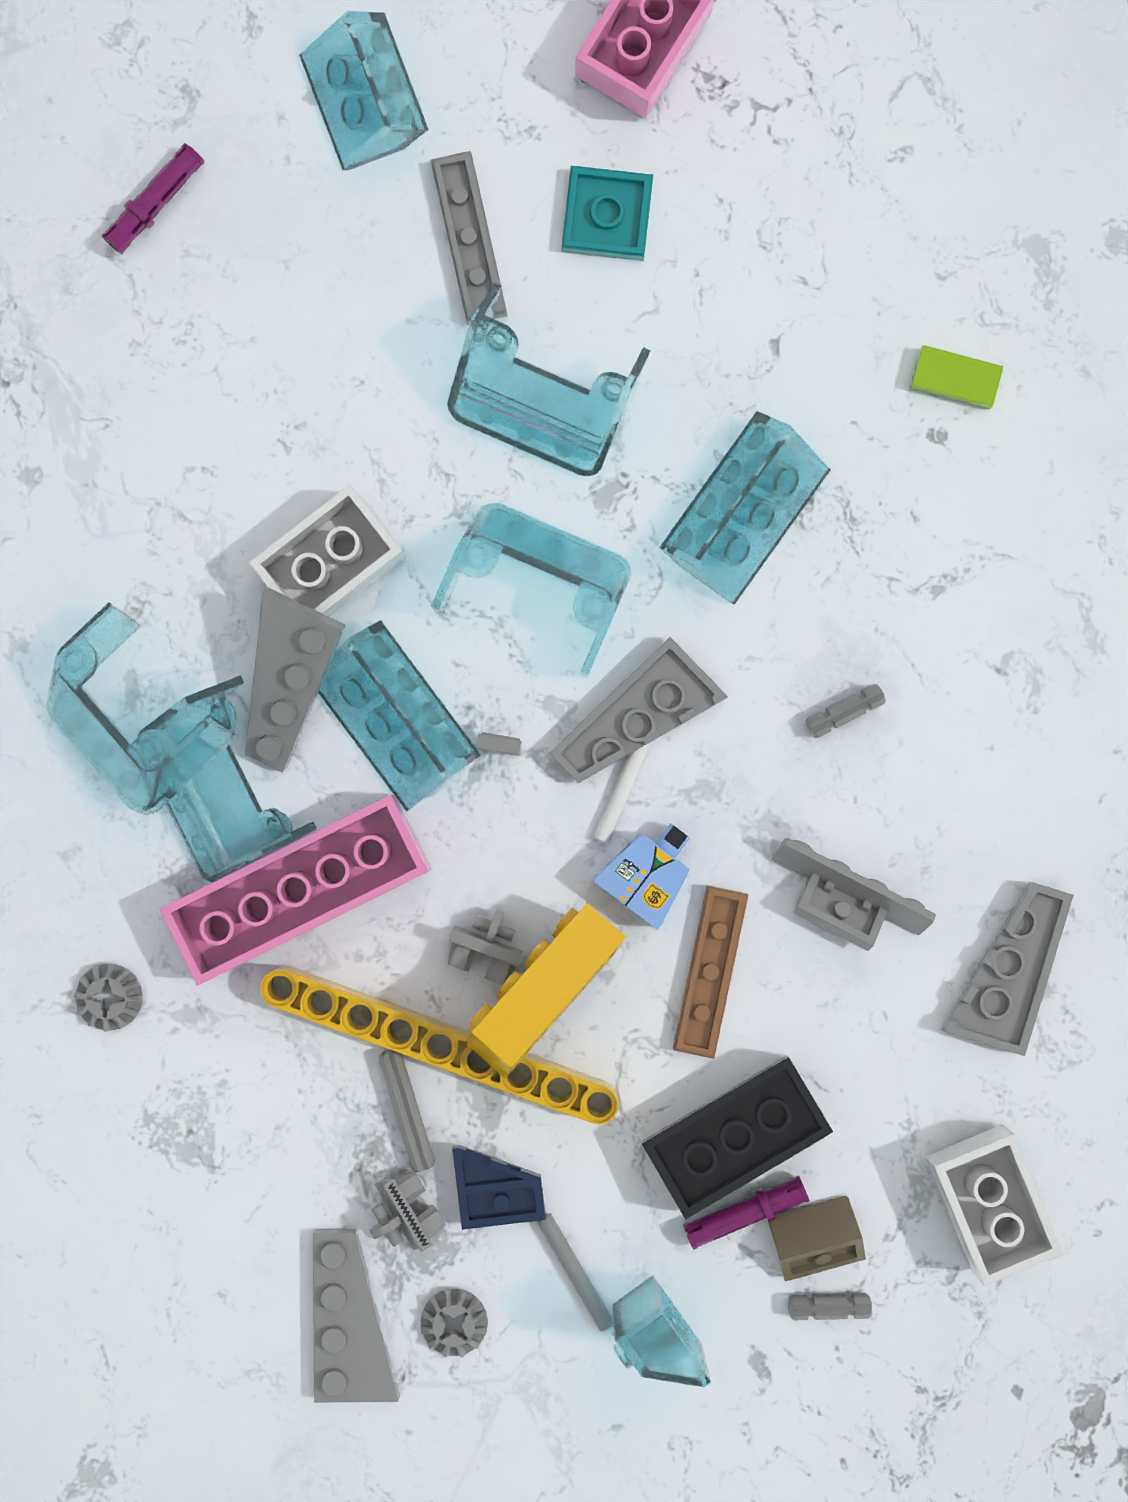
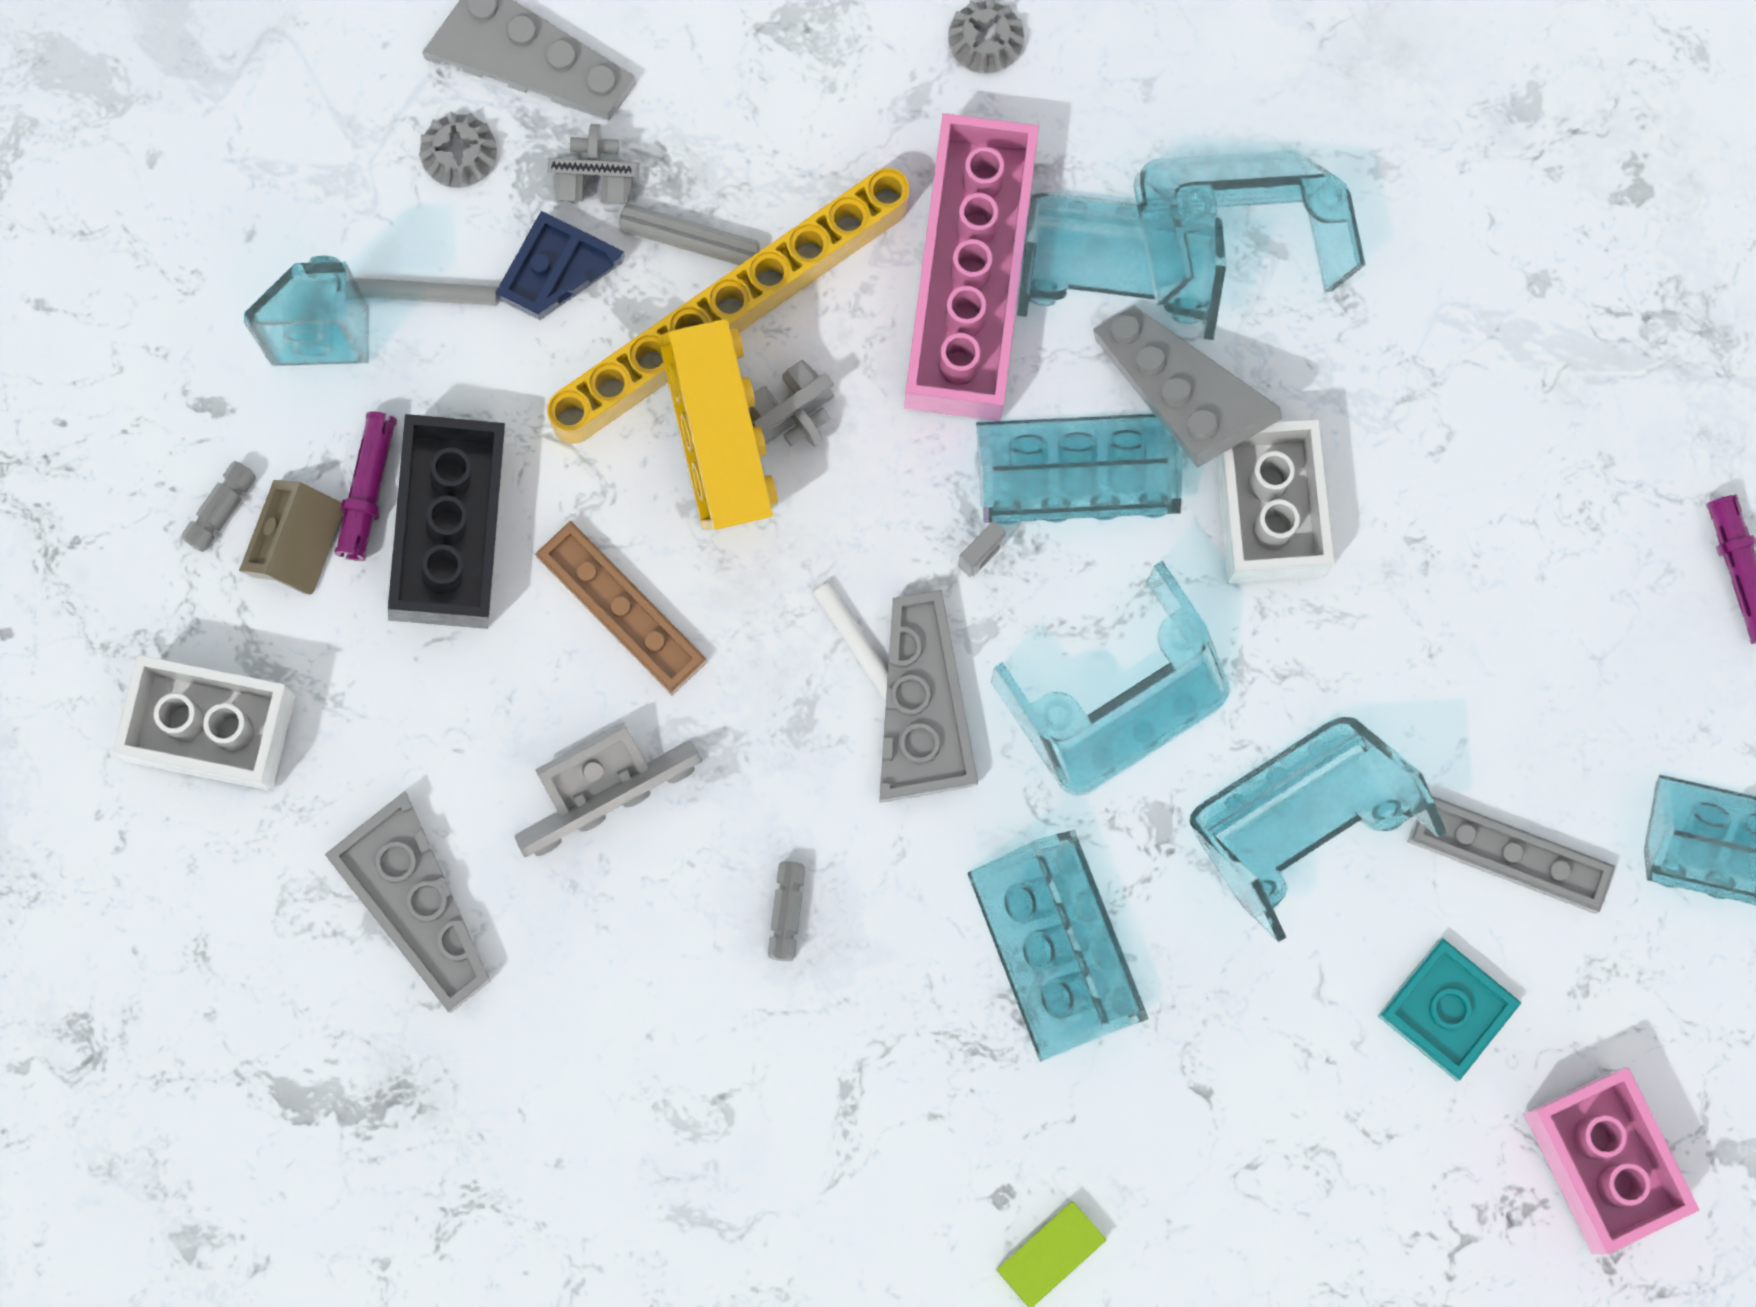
camera: 120 degrees right, 10 degrees down
(647, 874) = (757, 605): light blue torso -> none

